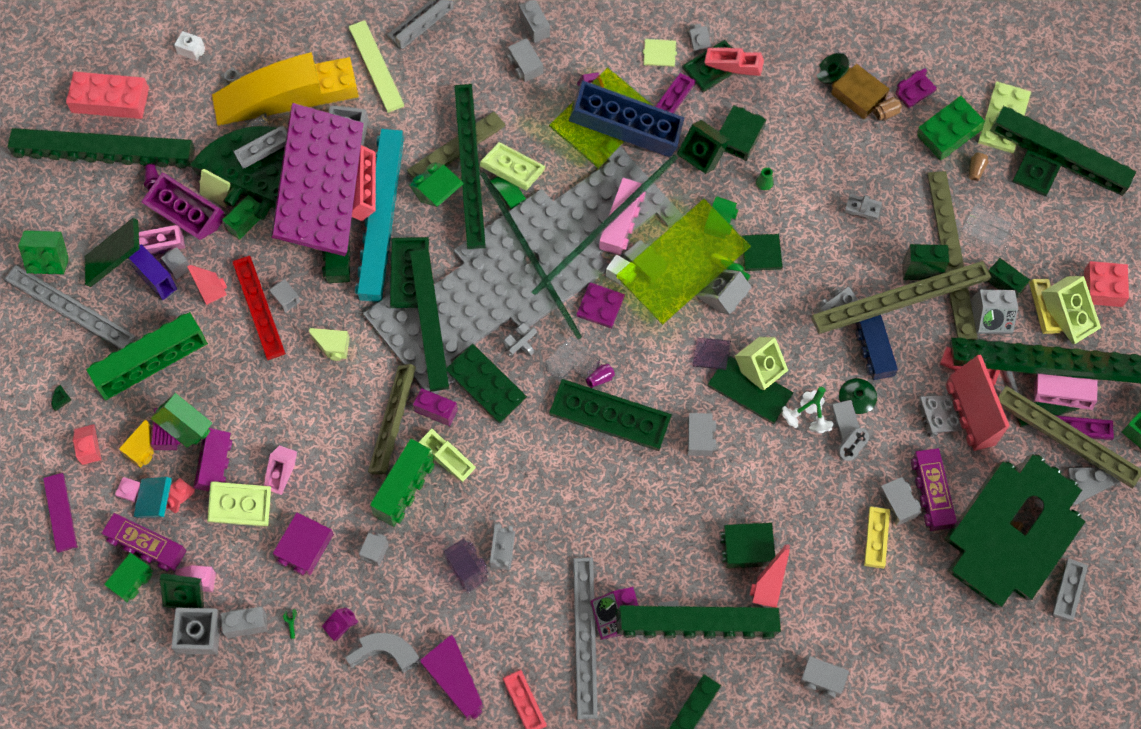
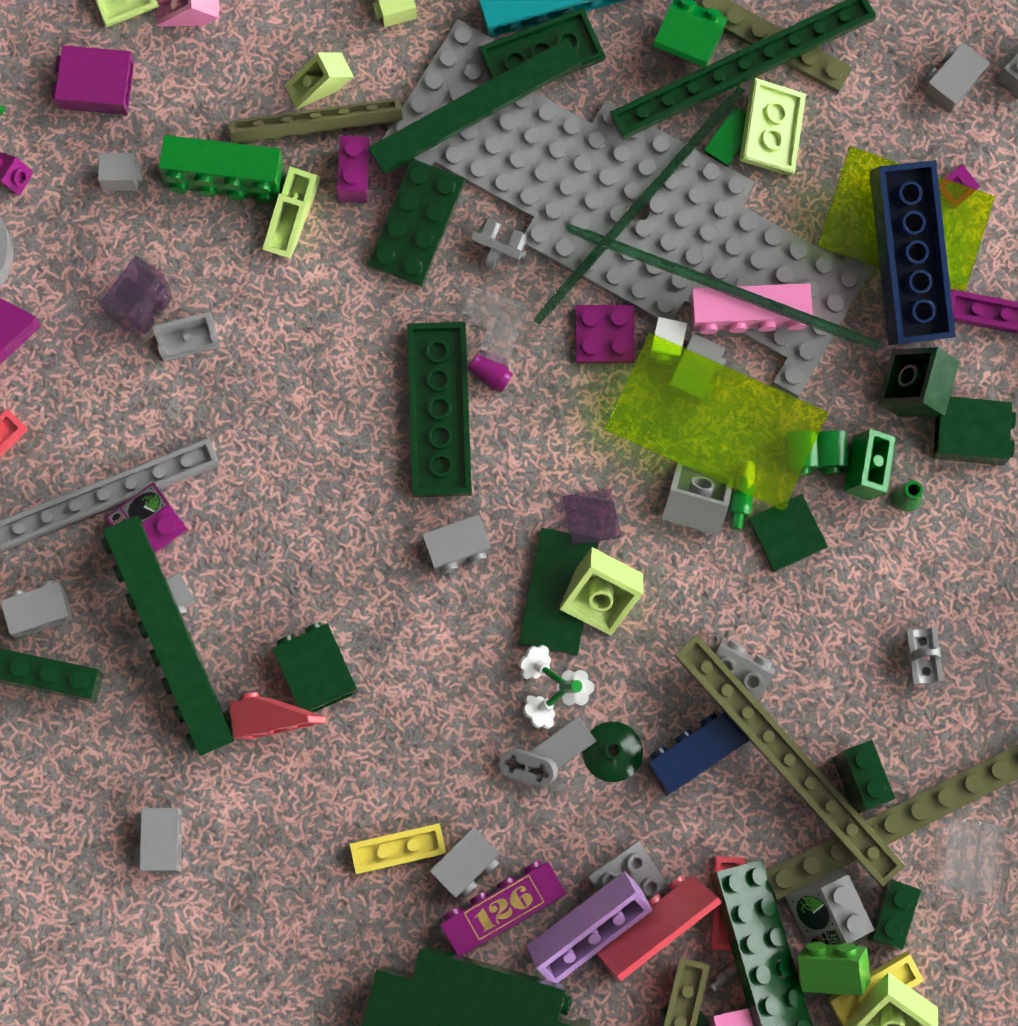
camera: 65 degrees right, 10 degrees up
(365, 408) = (318, 78): none -> yellowish green slope
(647, 703) = (36, 609): none -> light grey brick
(741, 191) = (869, 464): none -> green brick
(964, 442) = (589, 928): none -> lavender brick
(1030, 319) = (834, 969): none -> bright green brick

